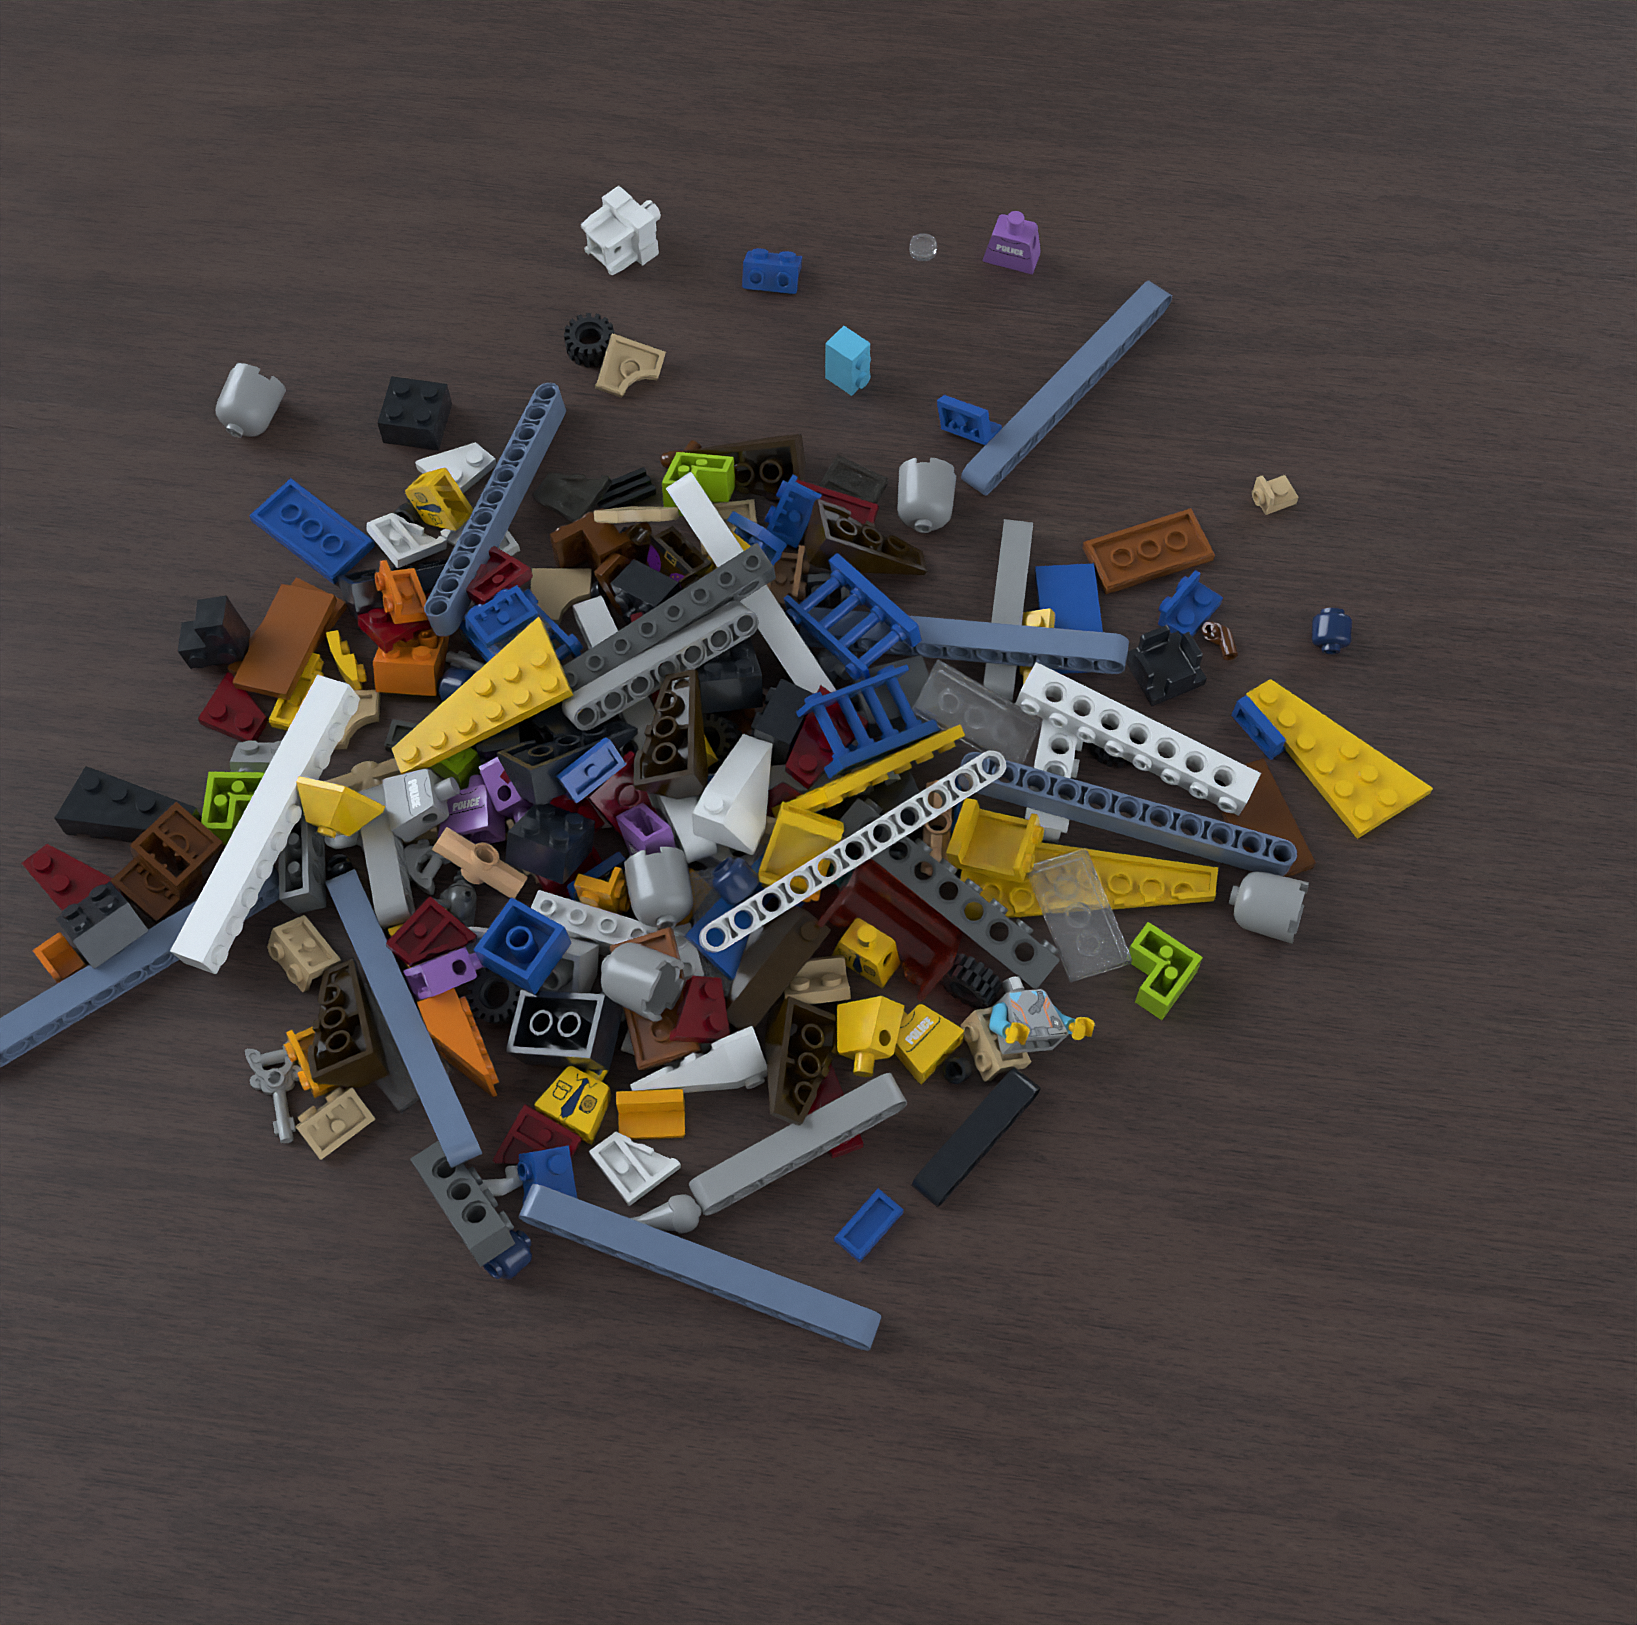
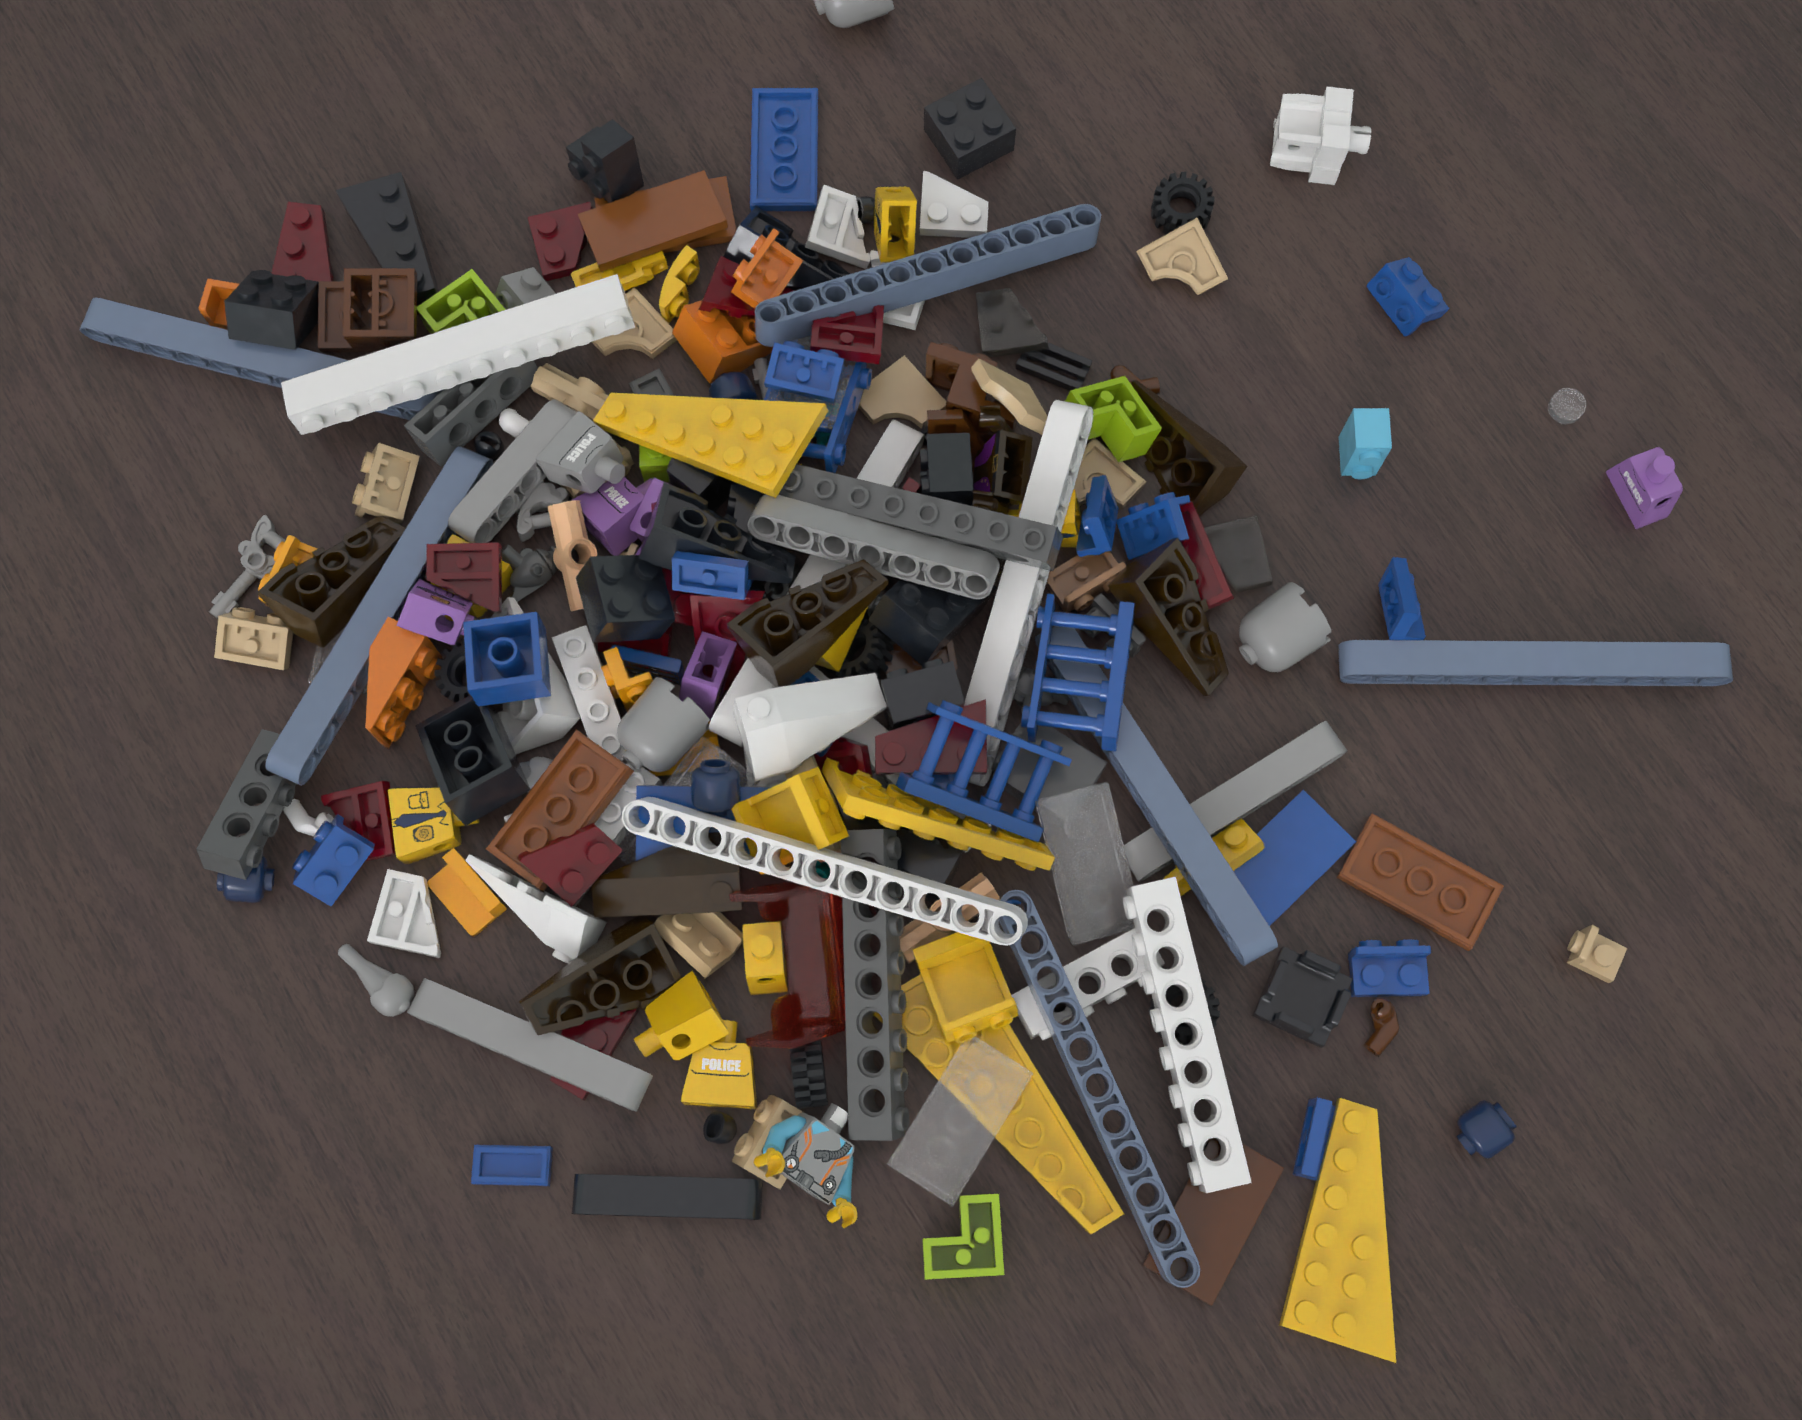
camera: 50 degrees right, 10 degrees up
(335, 807) = (516, 396): yellow slope -> none
(642, 979) = (549, 787): light grey cylinder -> none
(700, 1267) = (349, 1056): sand blue beam -> none
(1269, 904) = (1121, 1296): light grey cylinder -> none

